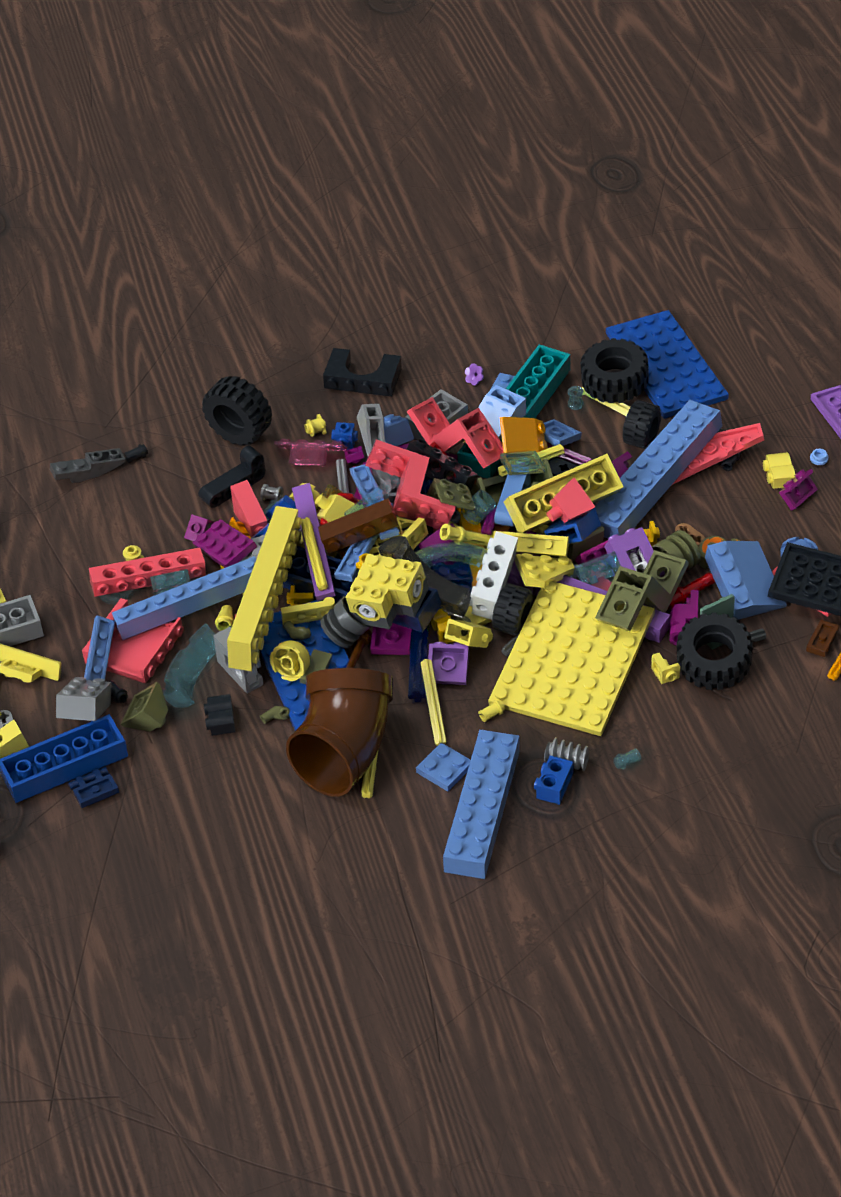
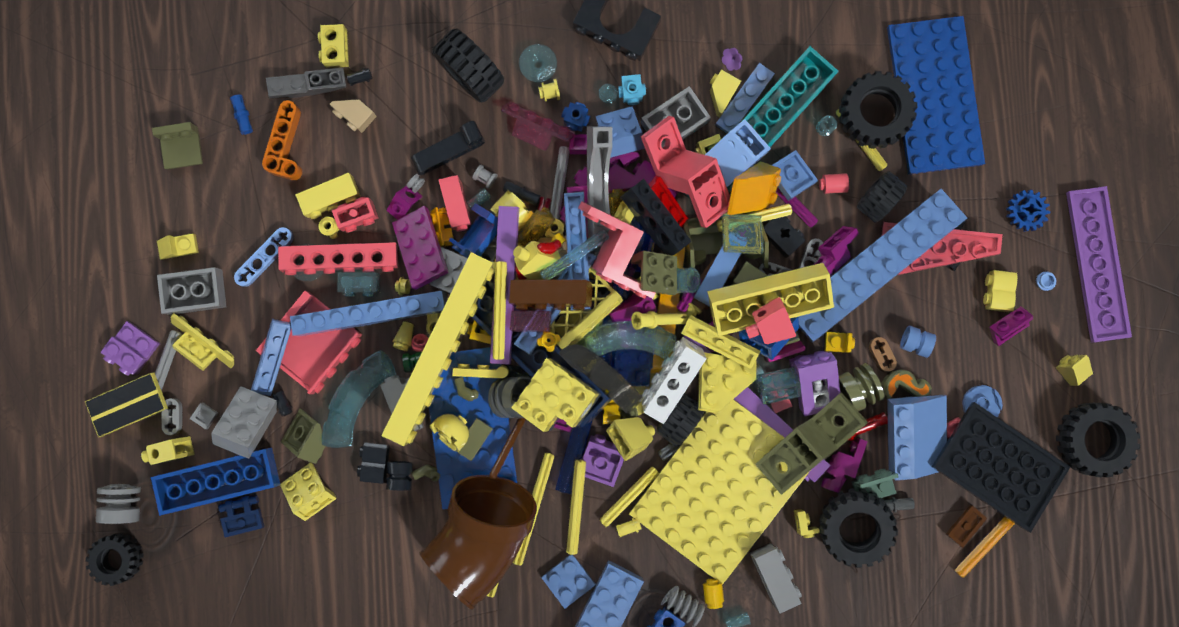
camera: 10 degrees right, 40 degrees up
(30, 500) = (241, 114): none -> blue pin
(38, 717) = (204, 415): none -> light grey plate
(69, 591) = (262, 255): none -> light blue beam
(72, 520) = (286, 139): none -> orange beam
(106, 434) = (338, 45): none -> light yellow brick
(128, 532) = (328, 196): none -> light yellow brick
(137, 475) = (355, 112): none -> tan slope
(156, 538) = (355, 214): none -> coral brick
(160, 752) = (306, 492): none -> light yellow bracket
(207, 510) = (415, 183): none -> light grey bush
(248, 716) = (399, 475): none -> black wheel
(299, 410) = (535, 54): none -> clear light blue dish
(345, 553) = (530, 321): none -> clear pink tile
(390, 405) = (633, 83): none -> medium azure brick
(390, 730) = (537, 494): none -> light yellow axle
(473, 392) = (722, 90): none -> light yellow slope
(483, 690) = (629, 496): none -> light yellow axle
(594, 740) = (713, 594): none -> yellow brick
(597, 432) = (834, 183): none -> coral brick
(649, 707) = (776, 577): none -> light grey brick
(717, 517) = (920, 342): none -> medium blue wheel
(780, 414) = (1033, 204): none -> blue gear

